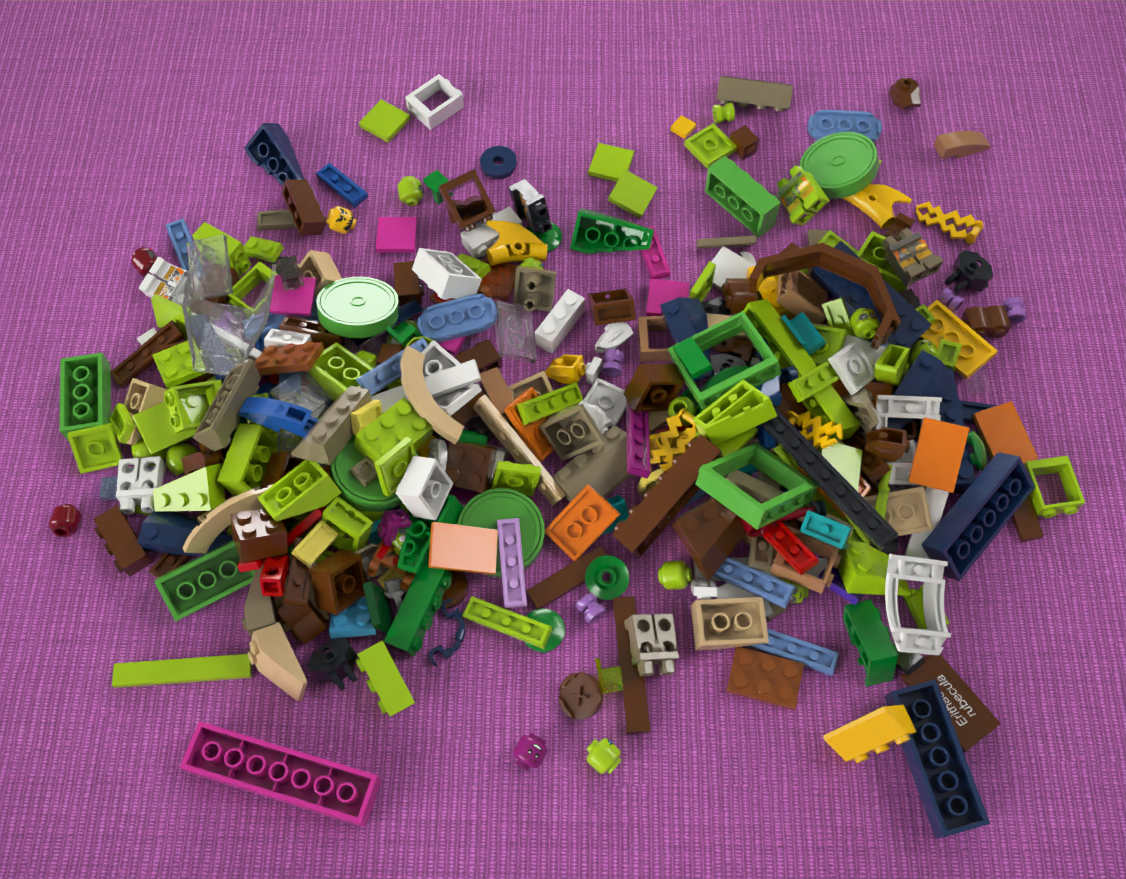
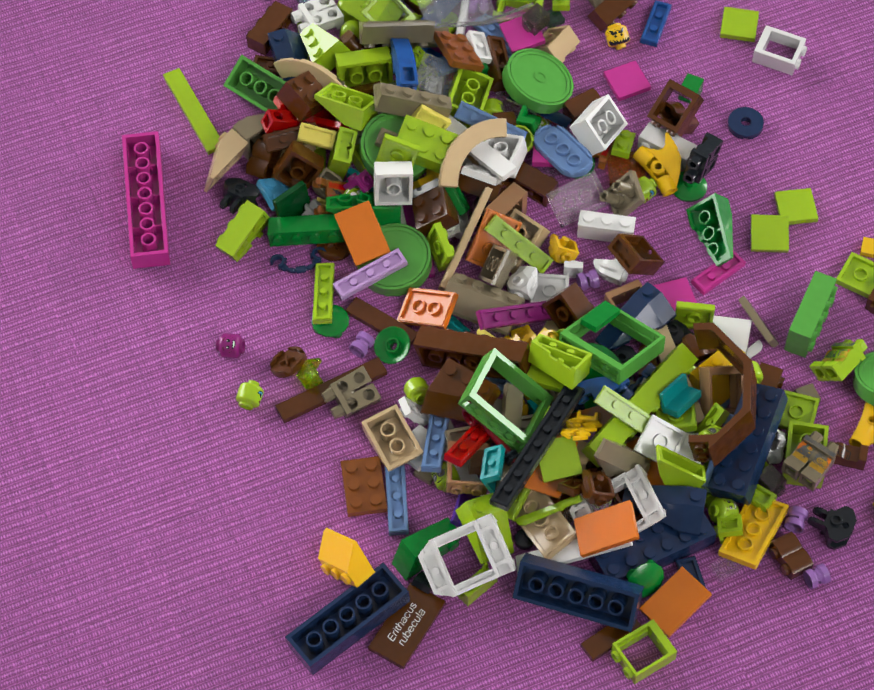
camera: 65 degrees right, 5 degrees down
(410, 190) = (675, 70): lime head -> none

